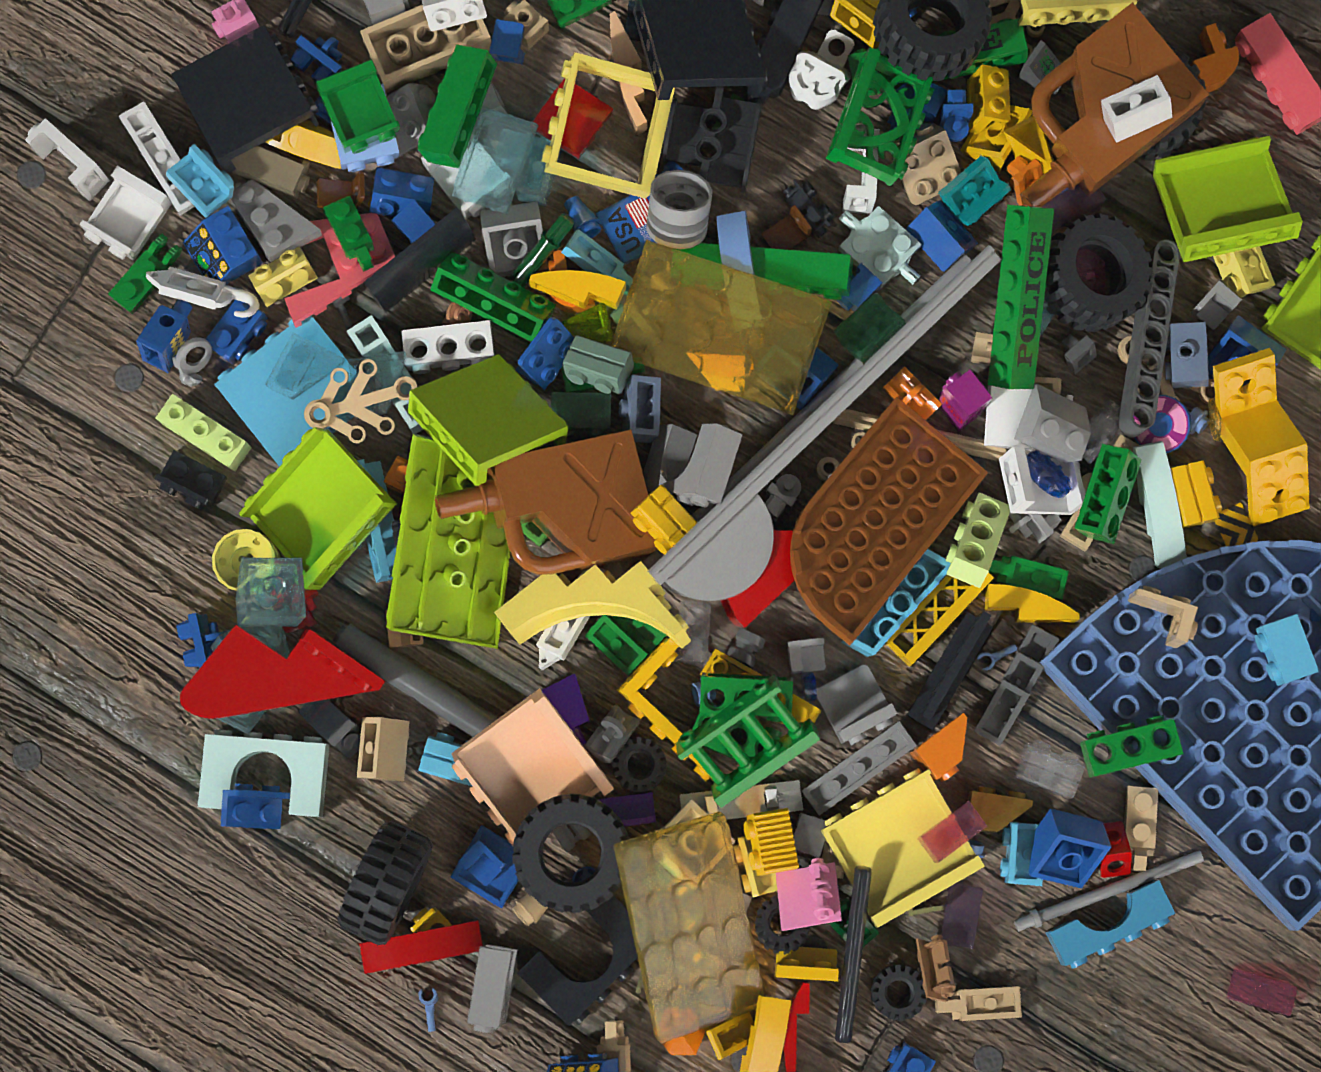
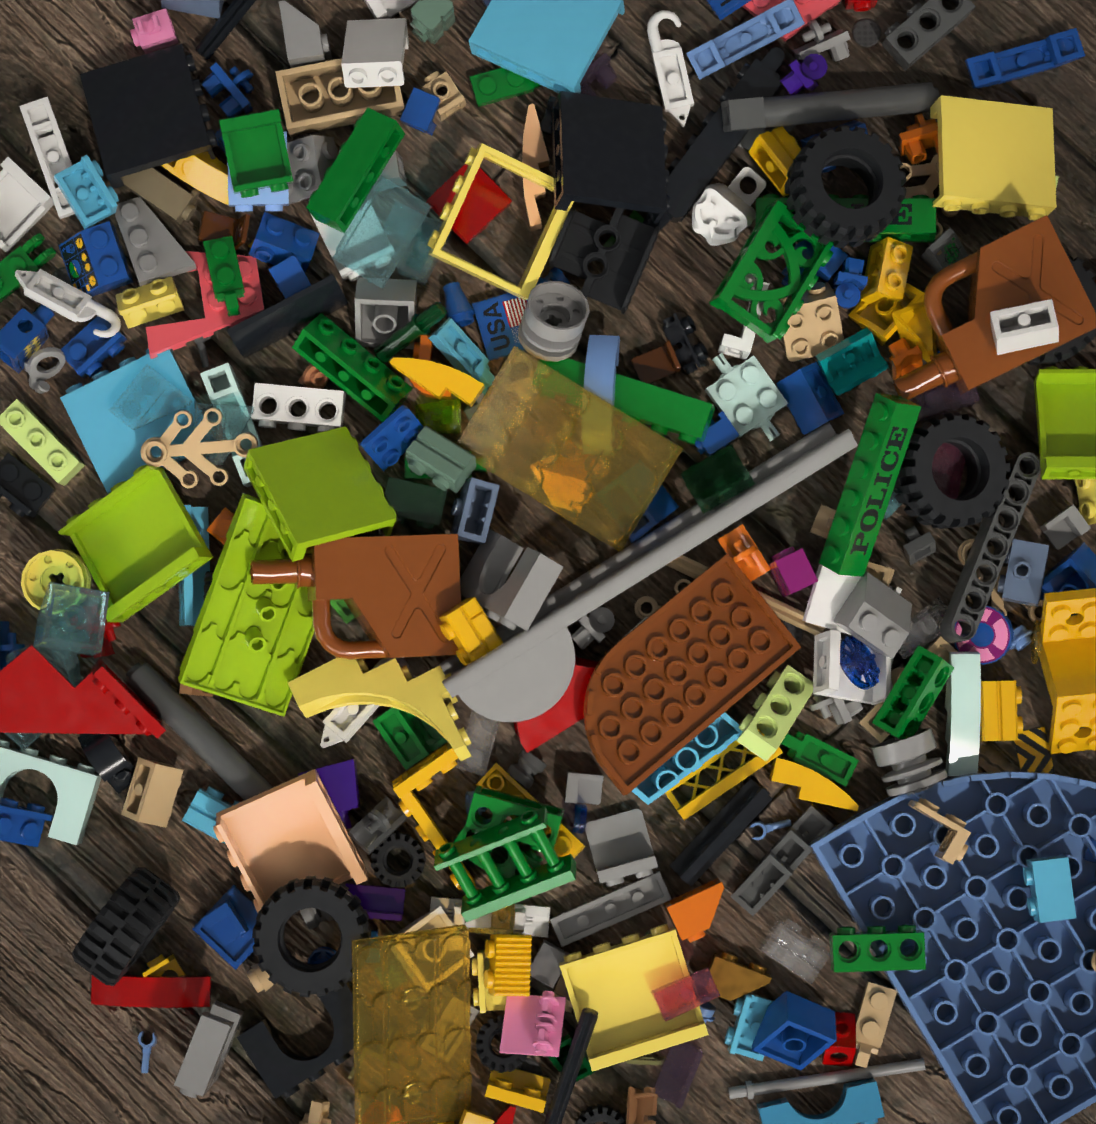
camera: 10 degrees right, 5 degrees up
(754, 801) = (501, 922): none -> clear yellow bracket
(1119, 561) = (909, 763): none -> light grey wheel

